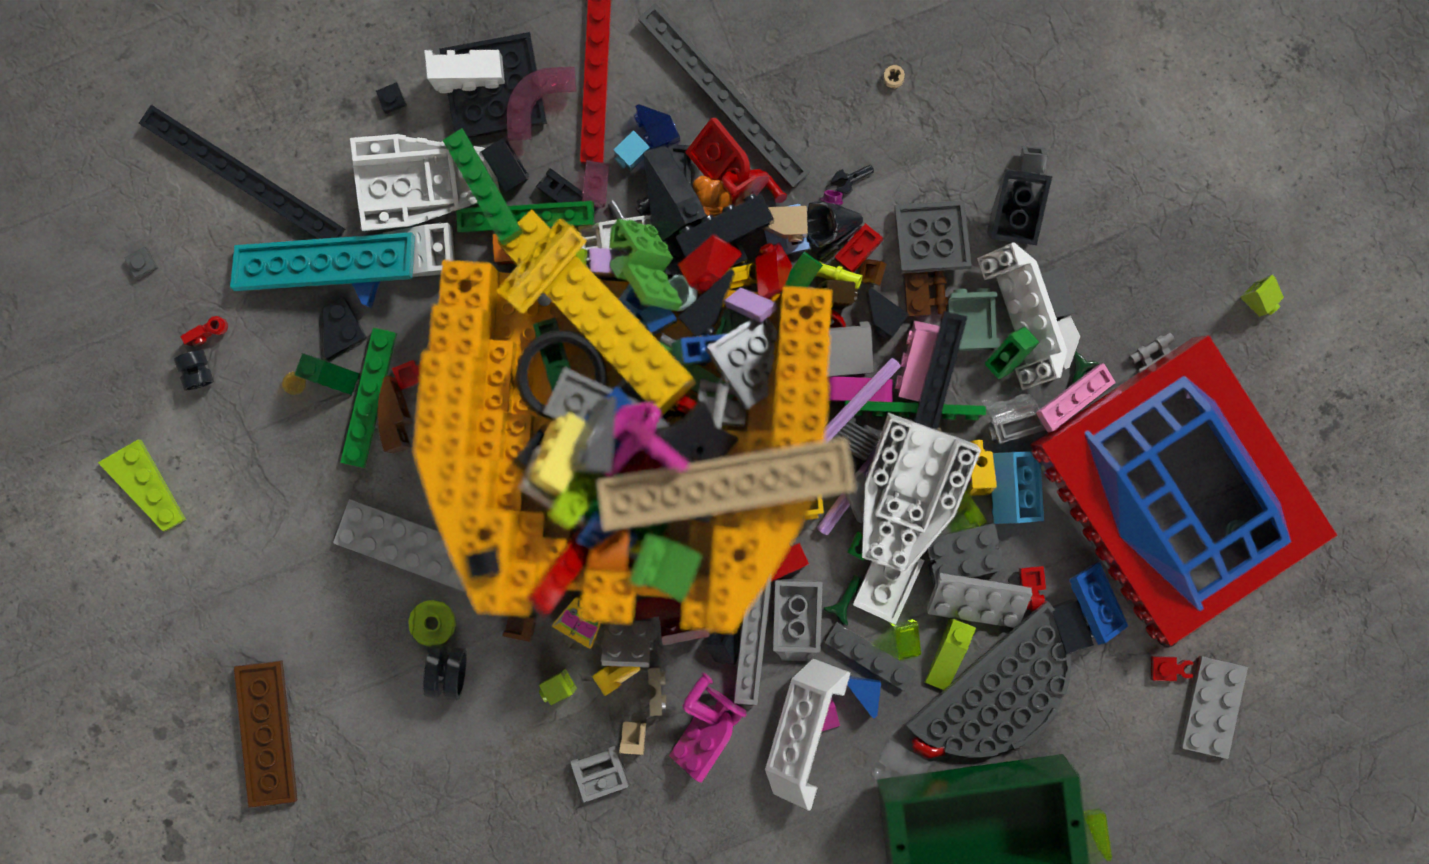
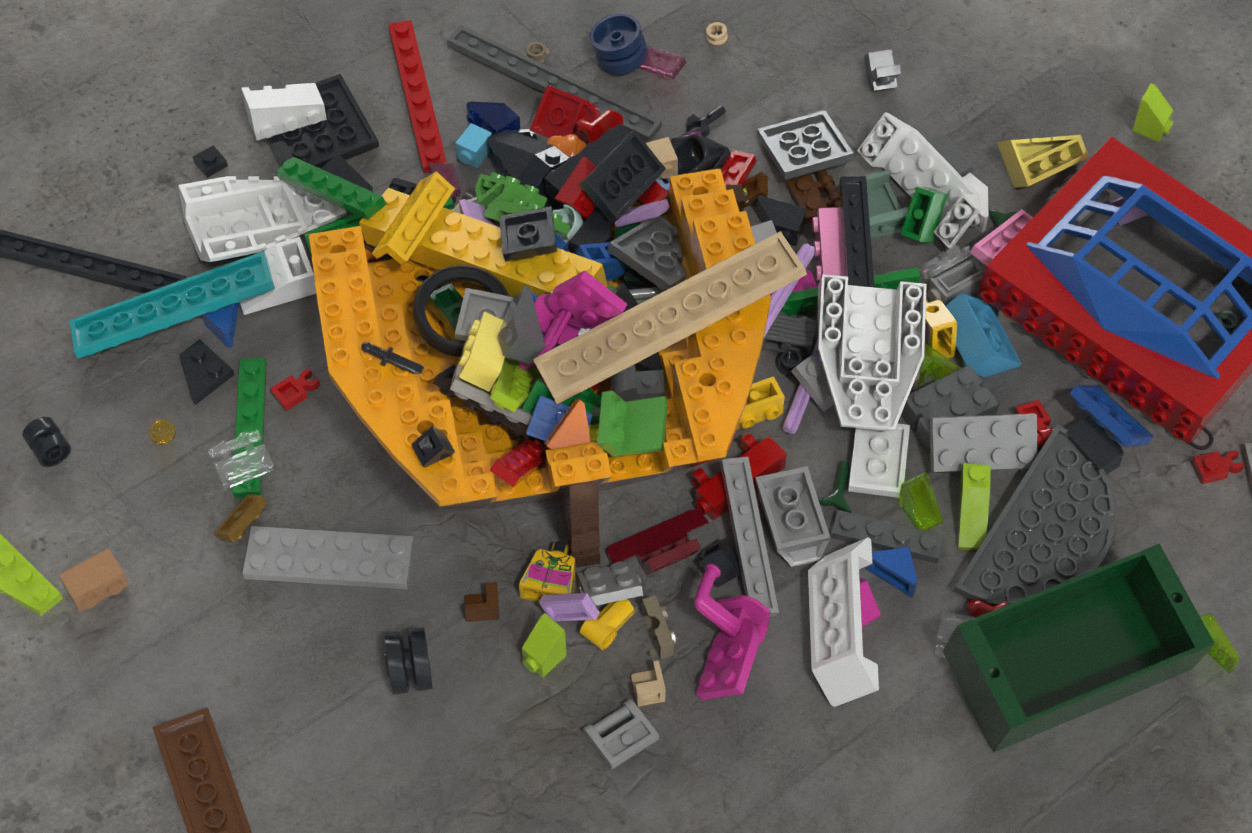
camera: 20 degrees left, 30 degrees down
(198, 335) = (47, 405): red plate -> none
(211, 516) = (94, 580): none -> medium nougat brick
(327, 374) = (198, 404): dark green slope -> none
(341, 490) = (240, 518): none -> pearl gold plate
(352, 444) = (242, 466): none -> clear plate
(392, 417) = (286, 428): reddish brown slope -> none
(442, 613) = (374, 614): lime tile -> none
(466, 459) = (392, 358): none -> black piece
(529, 91) = (357, 114): clear pink plate -> none
(586, 659) = (569, 607): none -> lavender tile
(634, 325) = (528, 234): none -> black plate
(719, 404) = (638, 287): white piece -> none
(724, 54) = (537, 52): none -> dark tan plate
(744, 263) = (622, 176): none -> black plate
(795, 72) = (619, 43): none -> dark blue wheel
(829, 99) = (663, 63): none -> clear pink plate
(855, 542) = (833, 423): green piece -> none
(1019, 207) = (880, 89): black slope -> none
(1142, 316) = (1039, 158): none -> light yellow wedge

